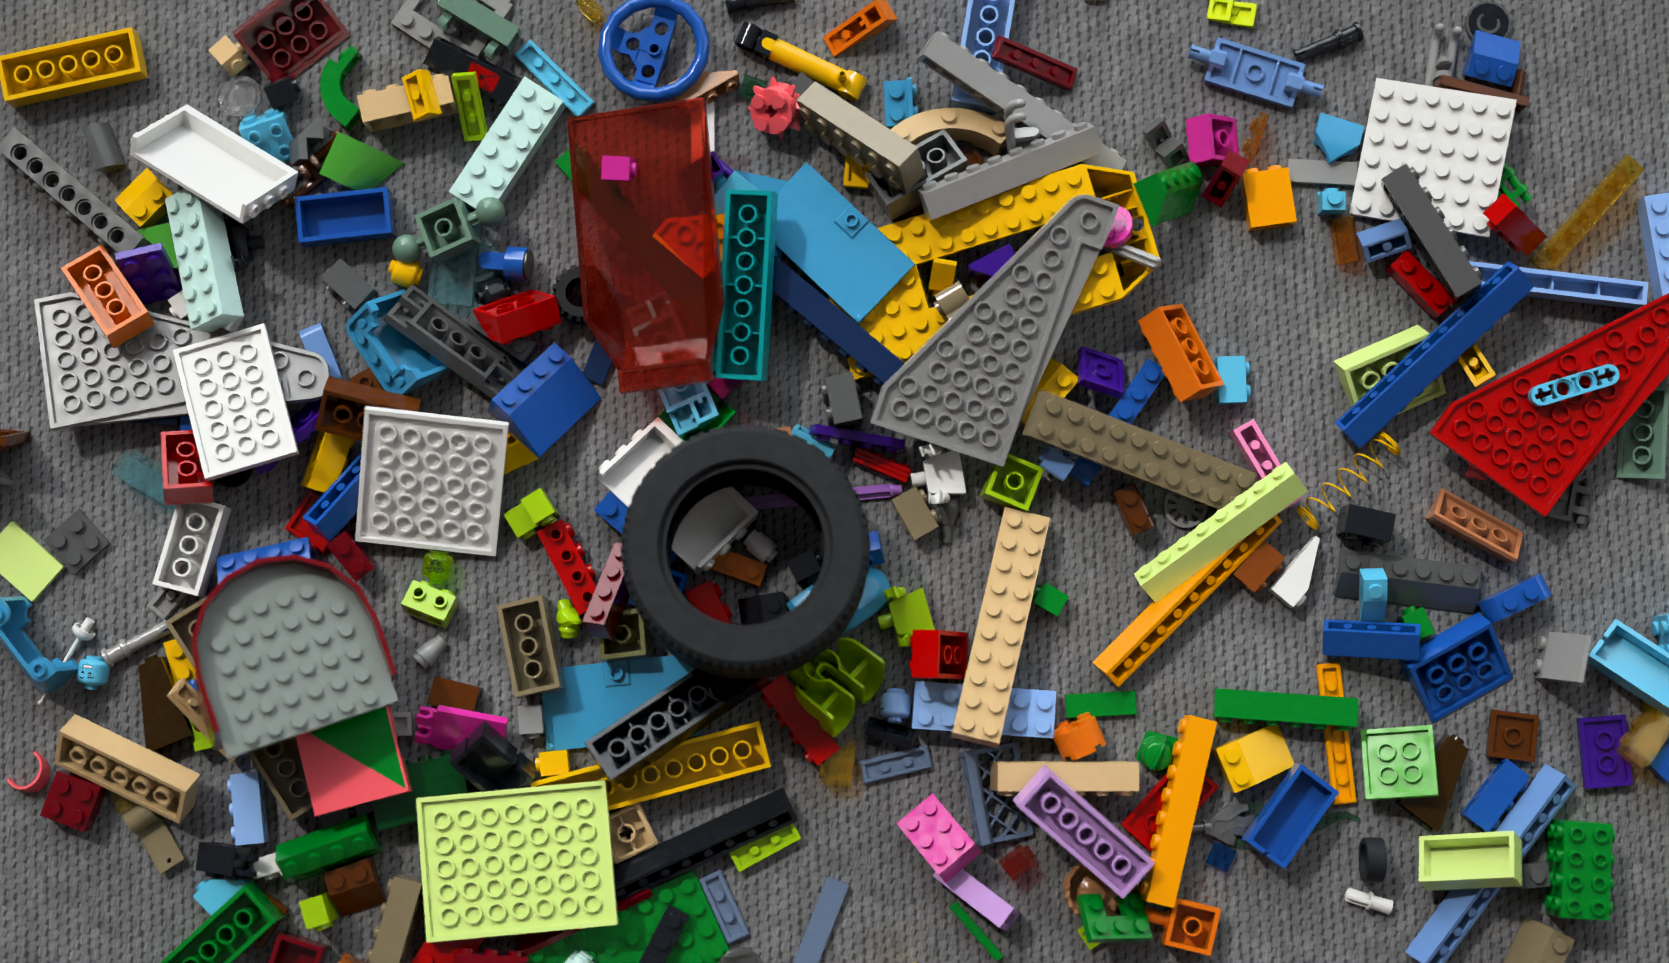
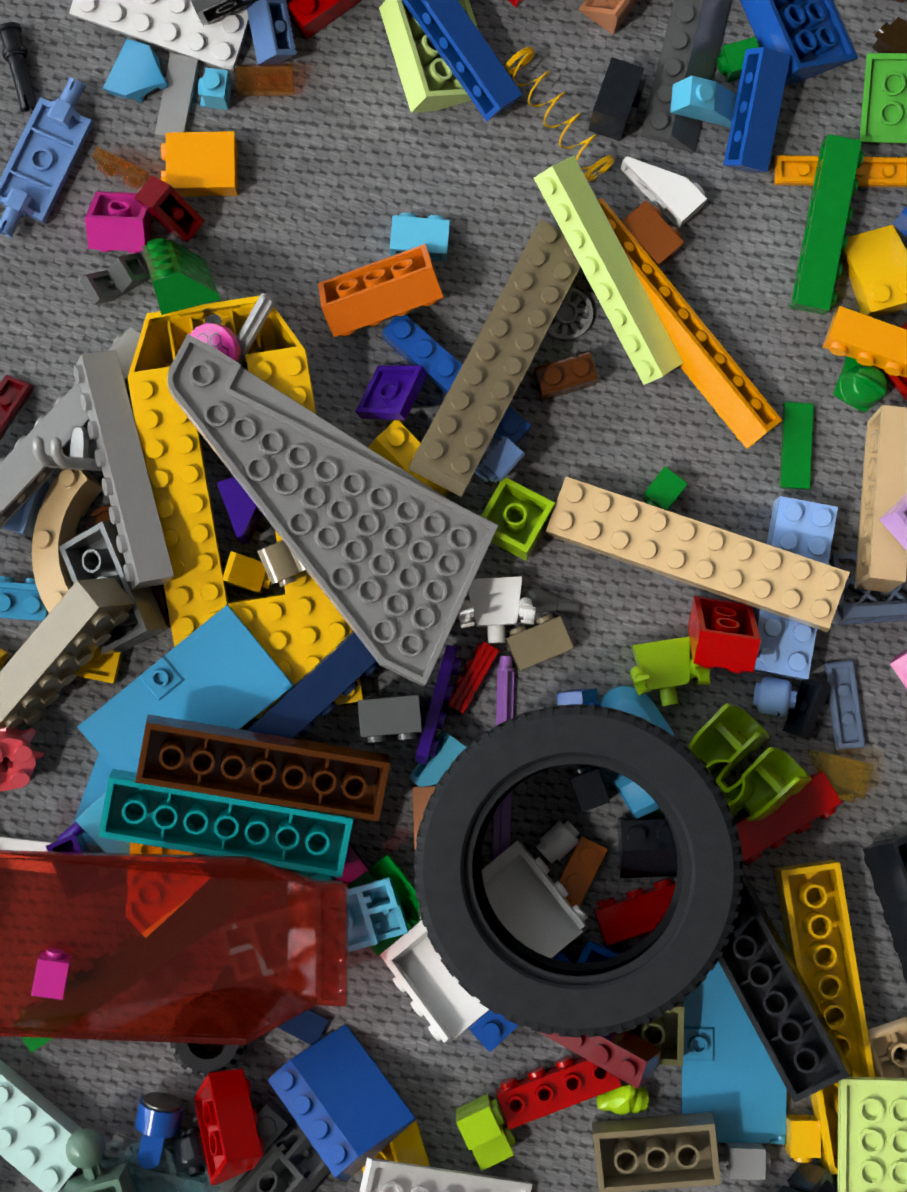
camera: 85 degrees left, 0 degrees up
(792, 307) = (262, 768): none -> reddish brown brick
(1078, 737) = (839, 476): orange brick -> none
(1255, 450) = (511, 218): bright pink brick -> none

